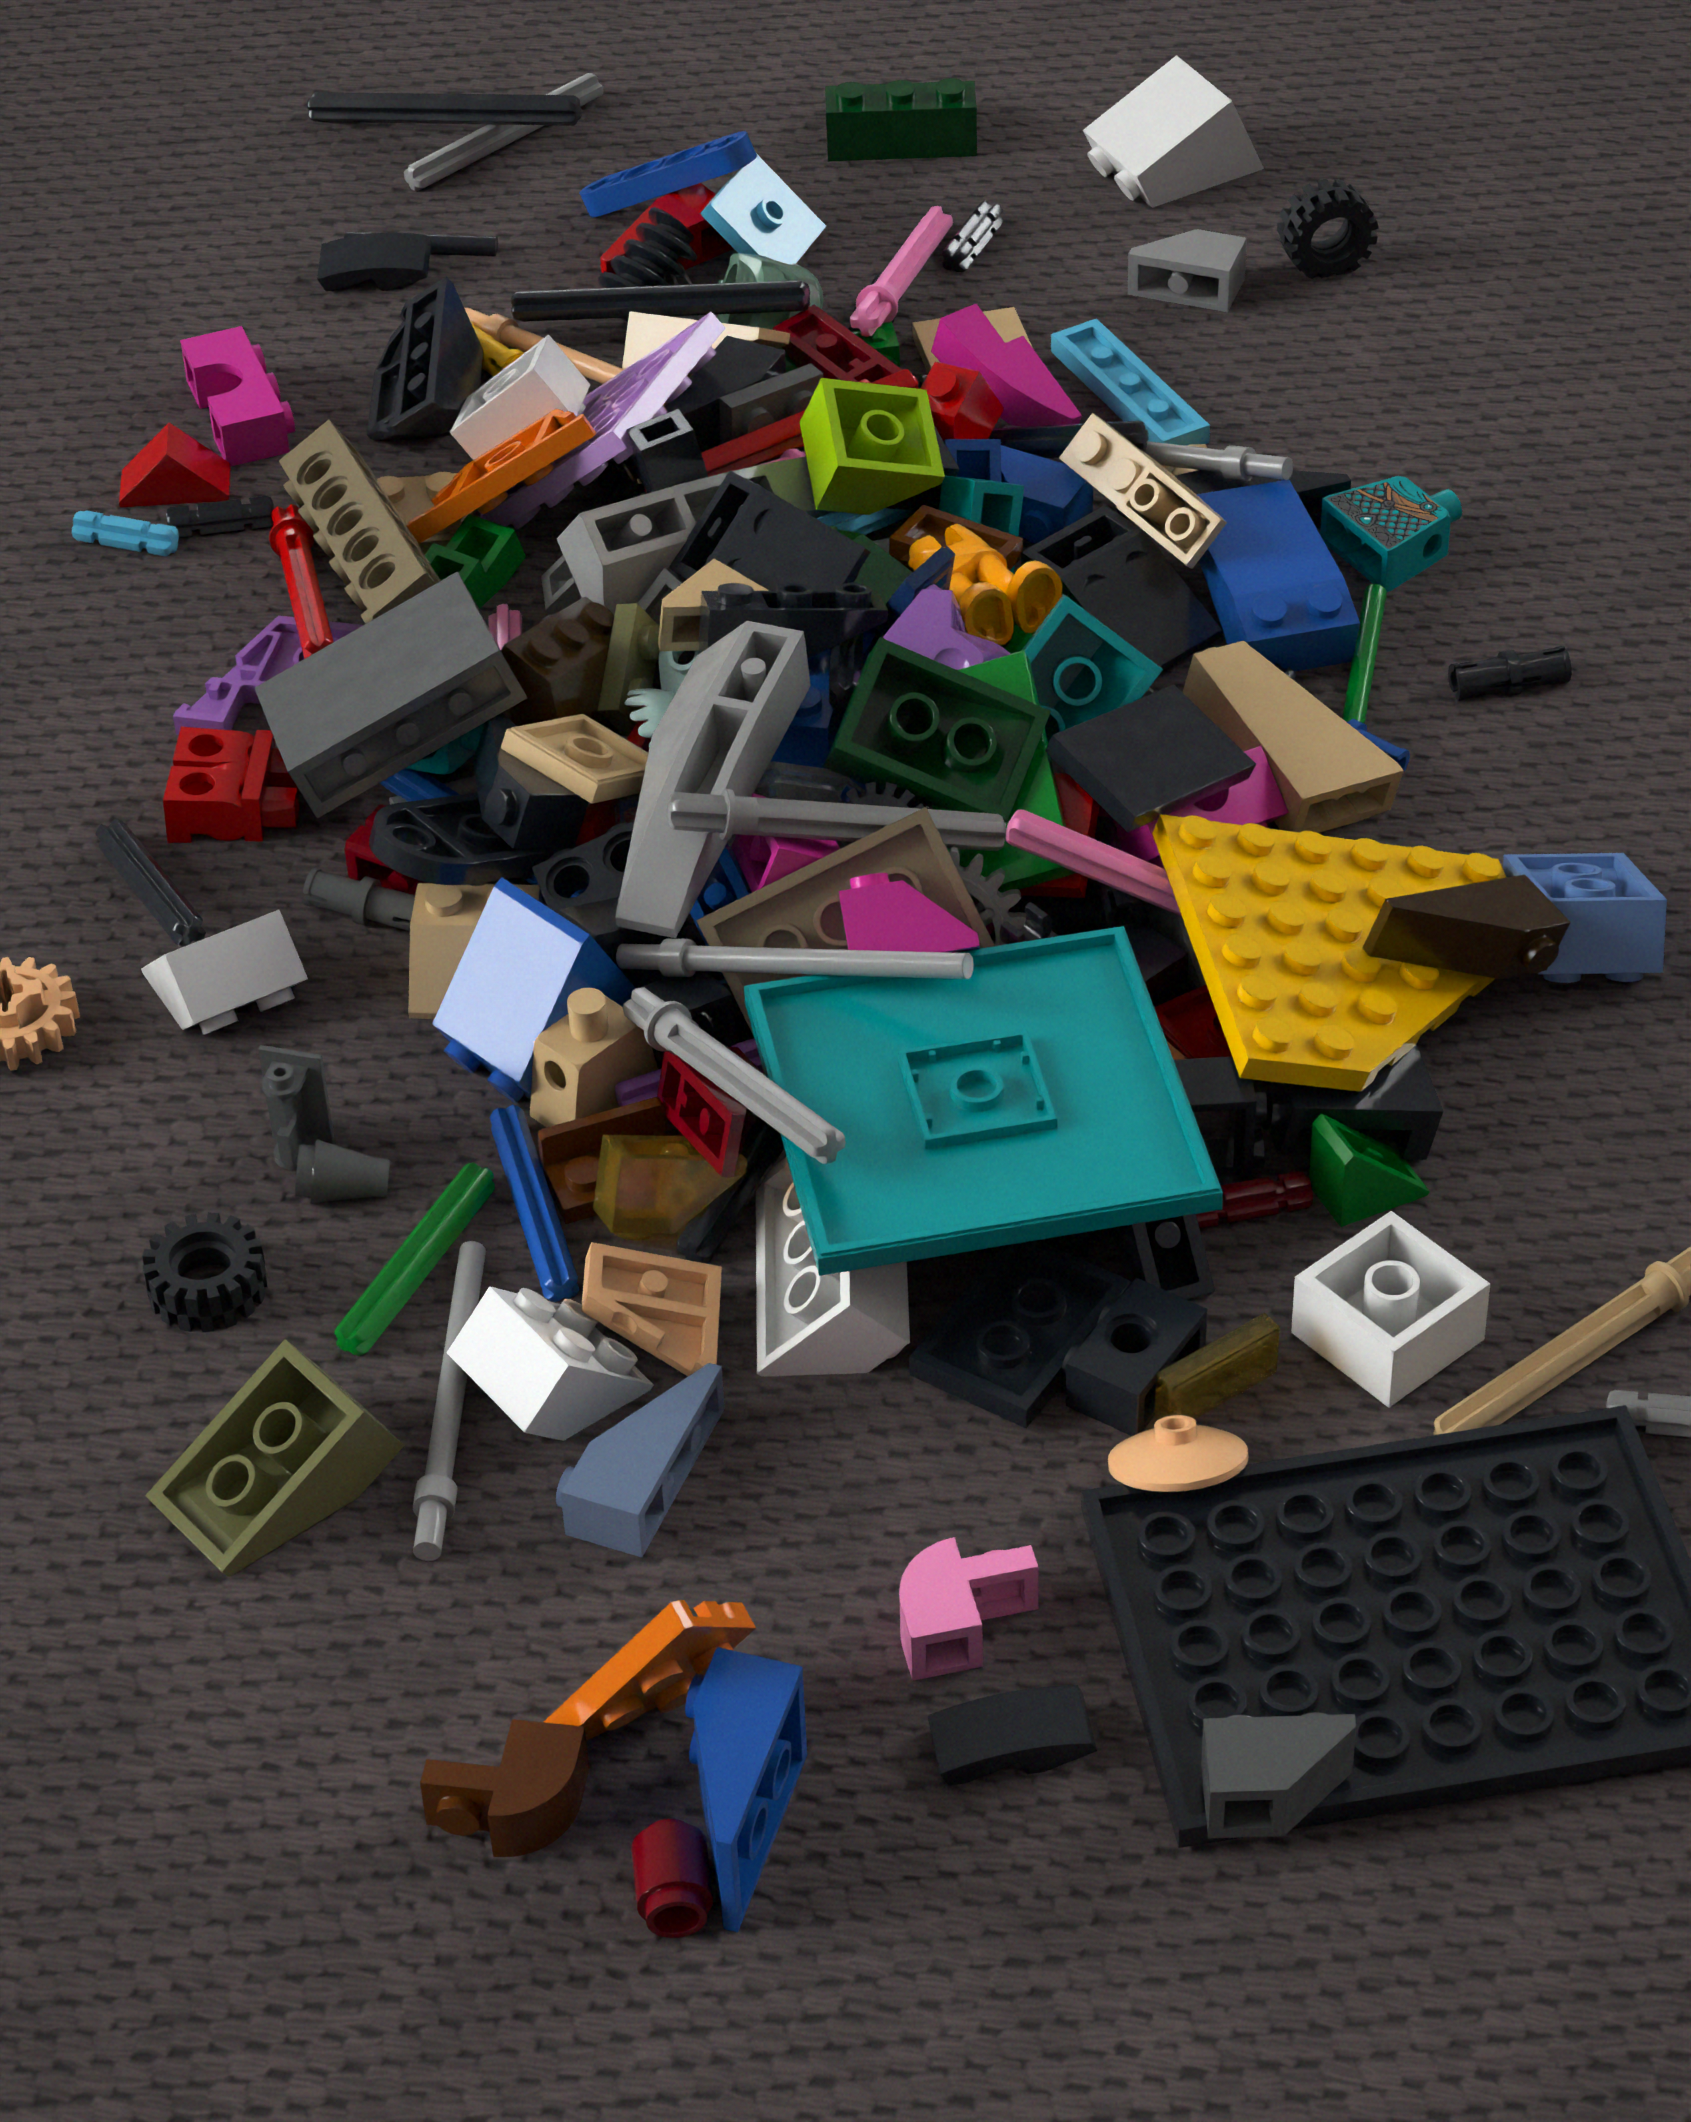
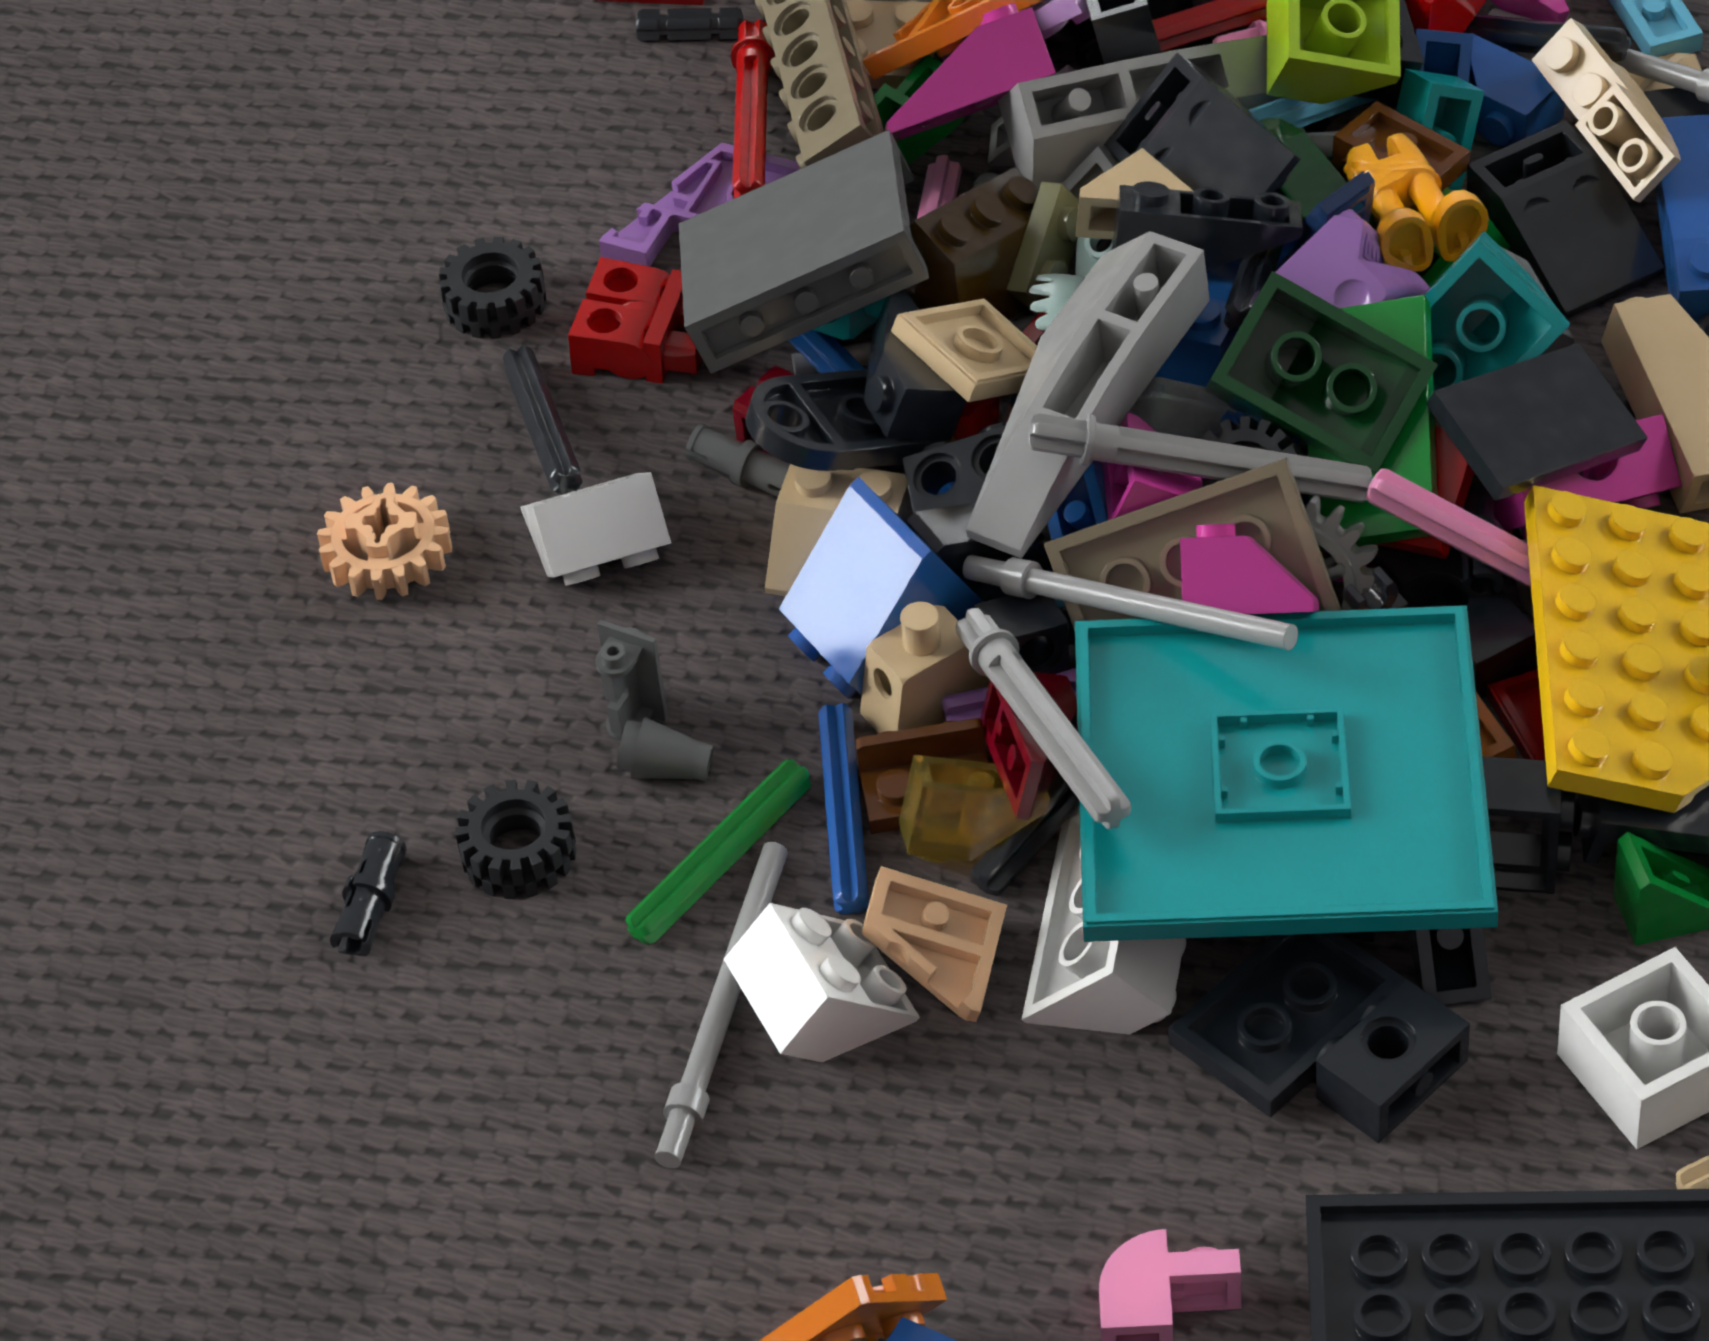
camera: 15 degrees right, 5 degrees up
(60, 1344) = (368, 894): none -> black pin
(78, 792) = (492, 310): none -> black tyre
(125, 533) = (594, 31): medium azure axle -> none
(273, 1462) = (541, 1047): olive slope -> none
(534, 512) = (978, 73): none -> dark pink slope
(639, 1465) = (886, 1102): sand blue slope -> none
(1177, 1456) = (1410, 1174): light nougat dish -> none
(1219, 1370) = (1469, 1088): clear yellow tile -> none
(1260, 1198) = (1554, 904): dark red axle -> none

